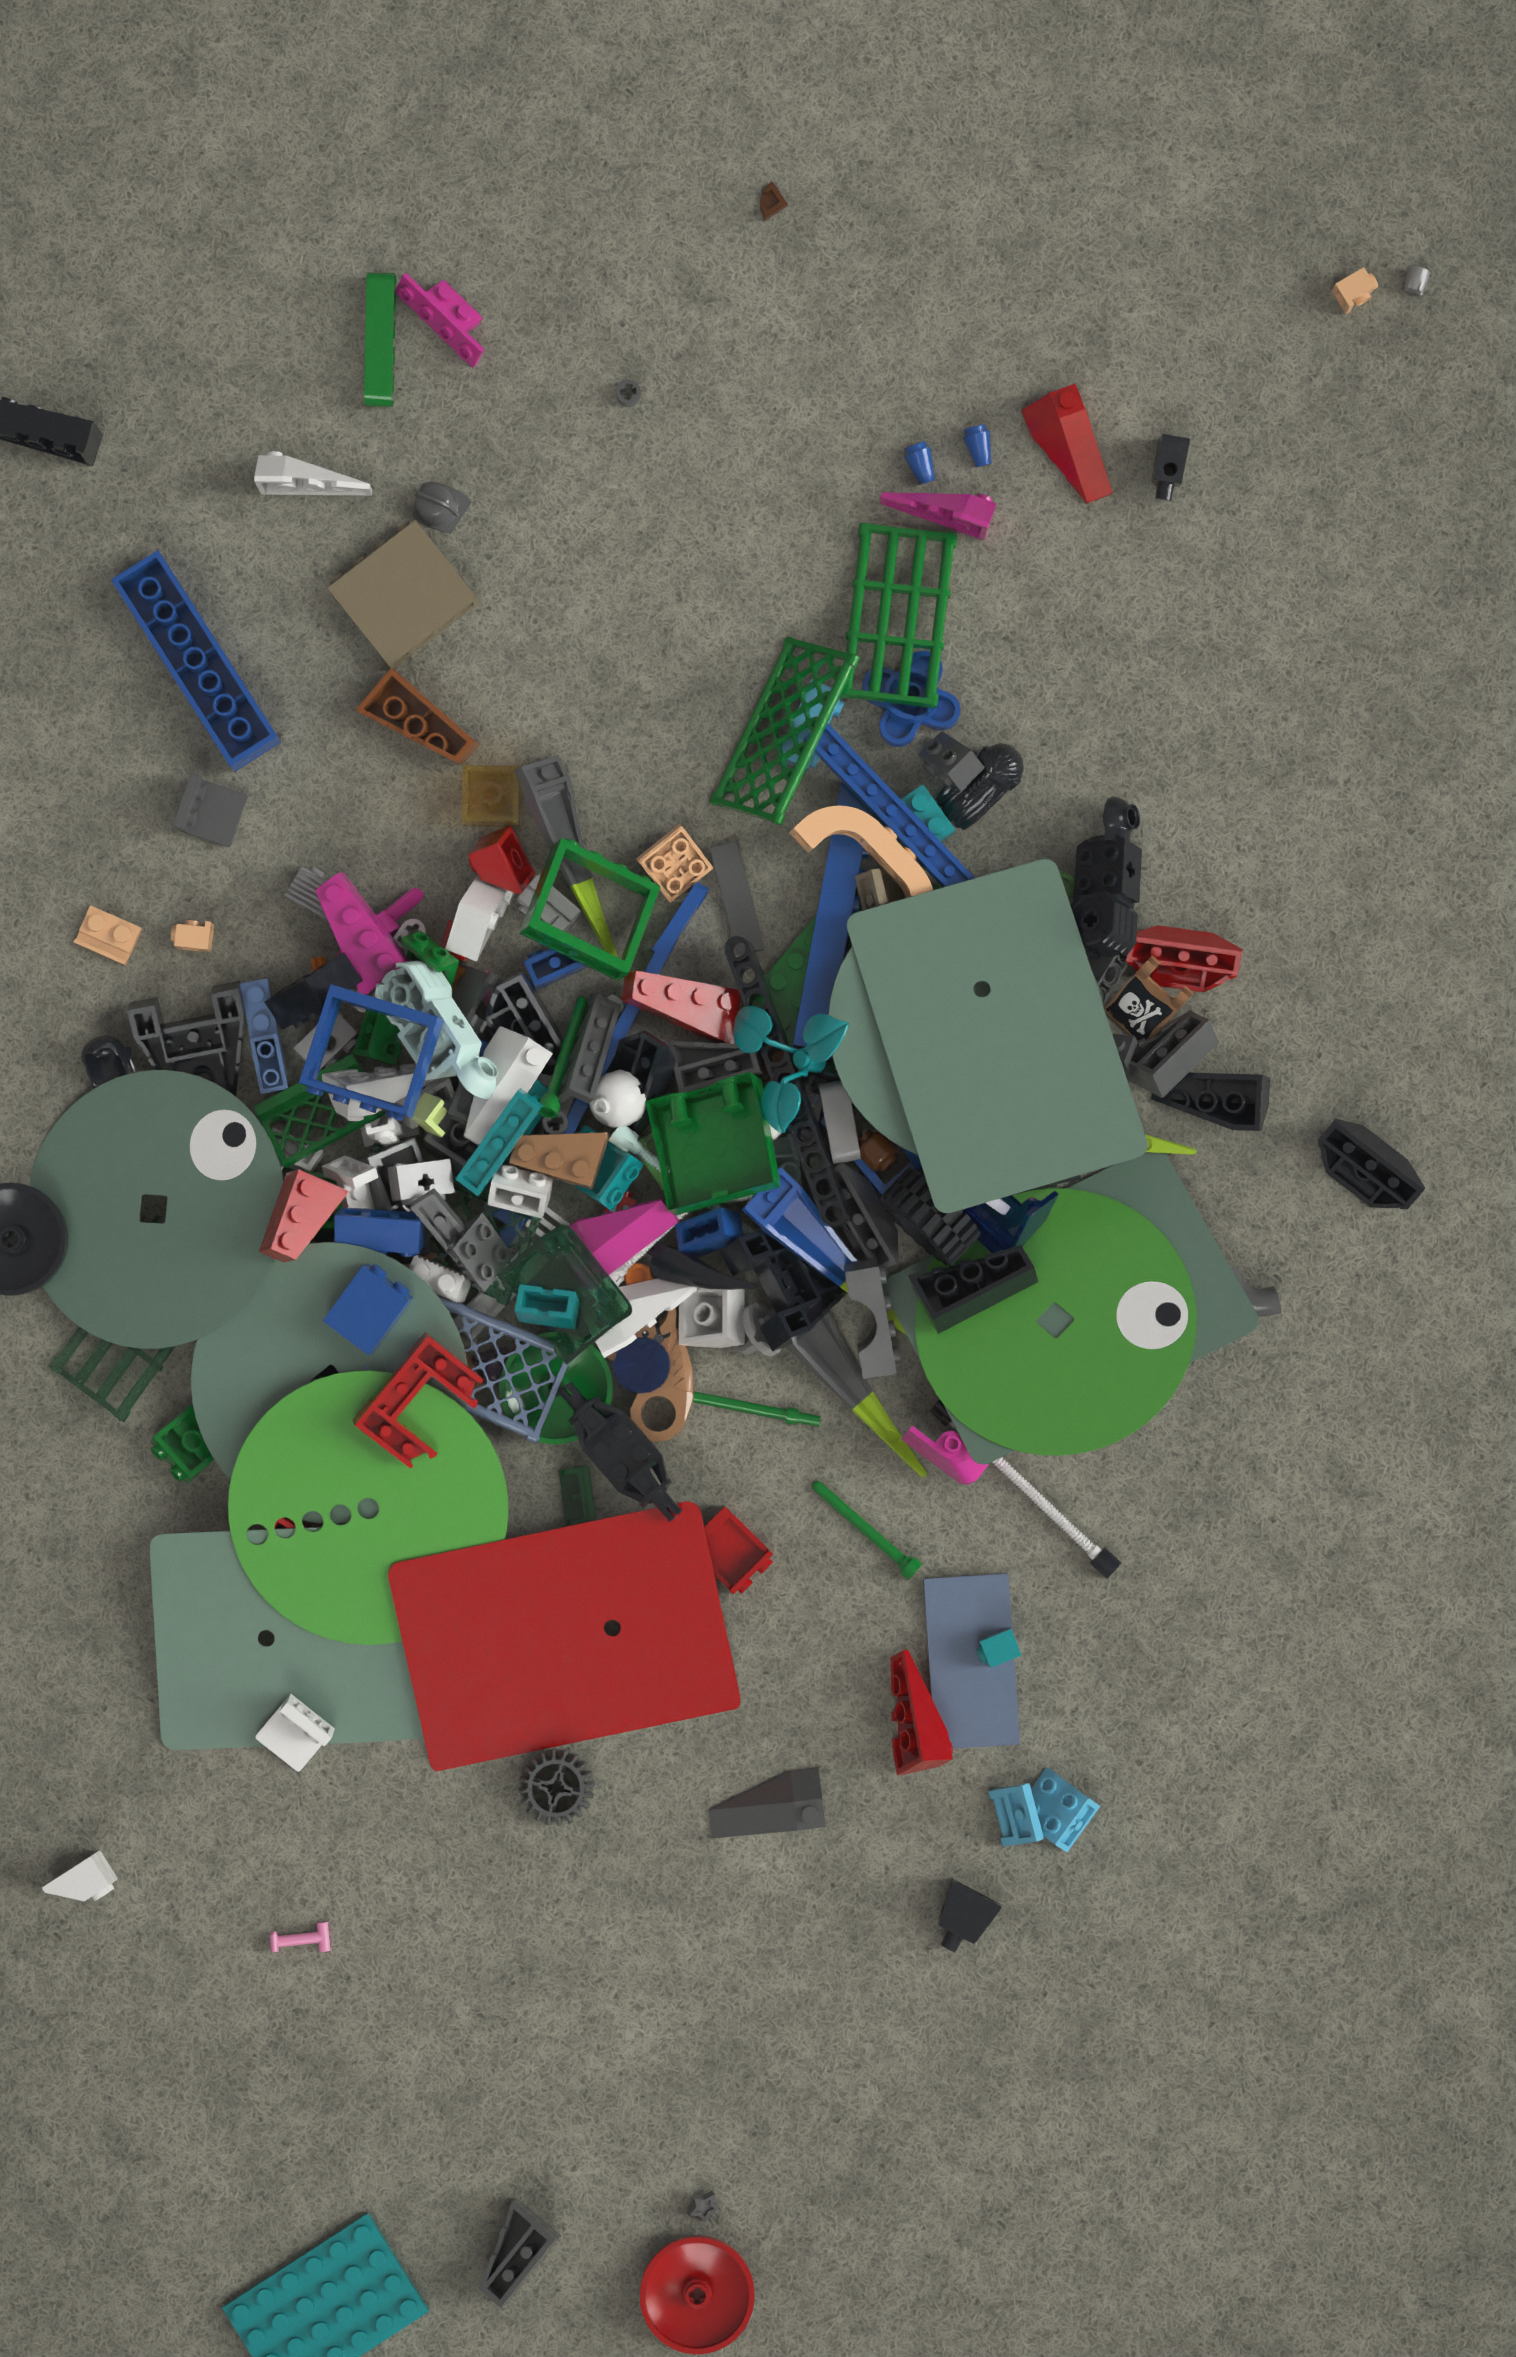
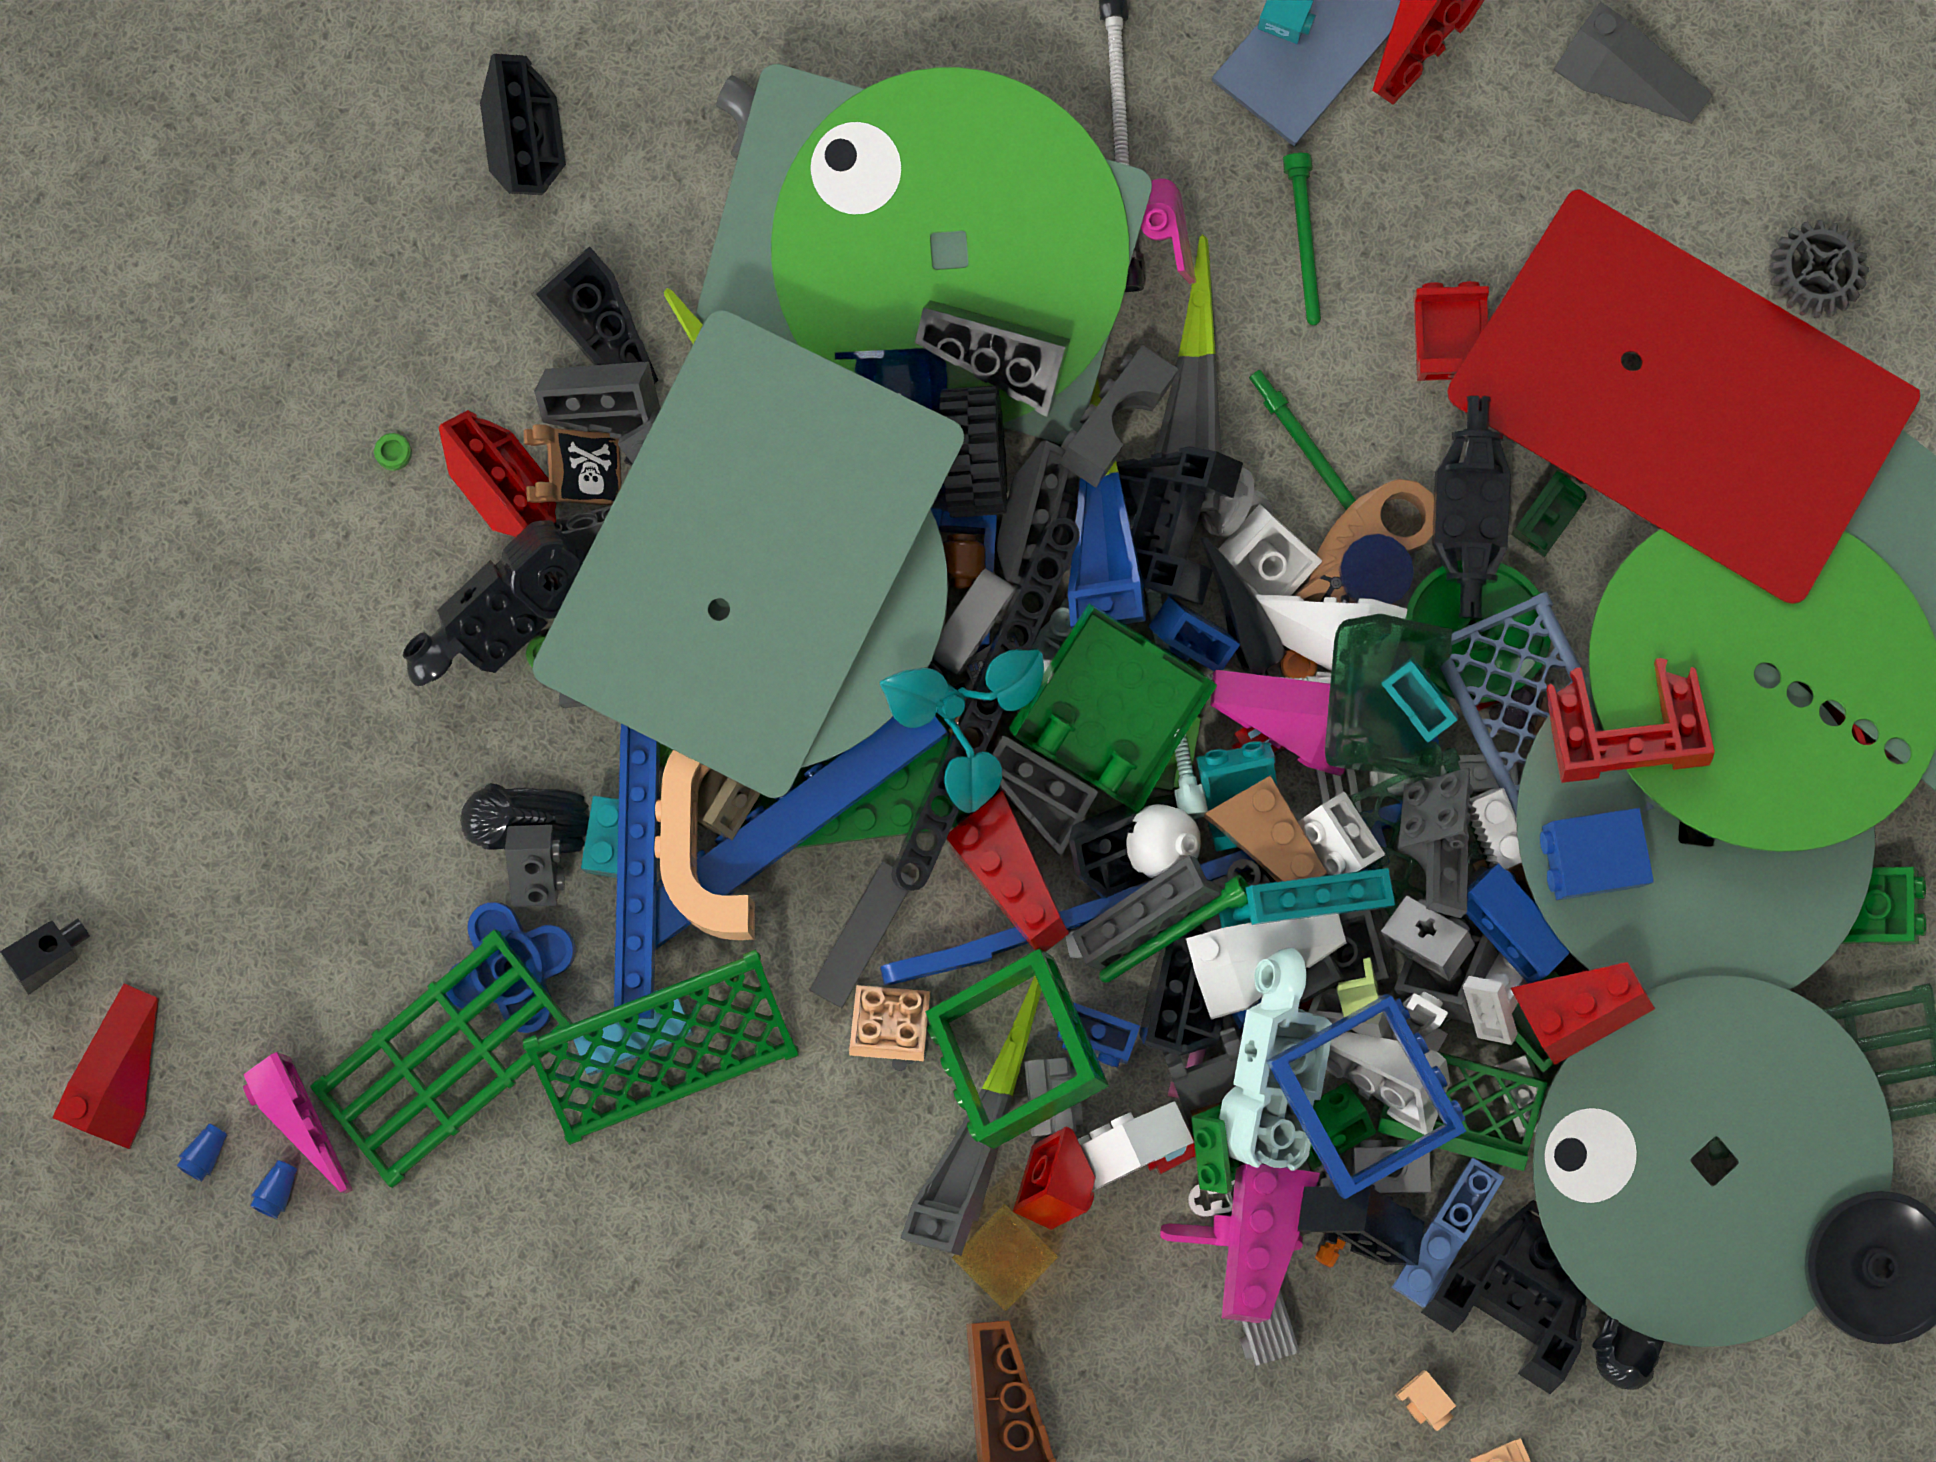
camera: 130 degrees left, 5 degrees down
(1258, 918) = (393, 451): none -> bright green tile

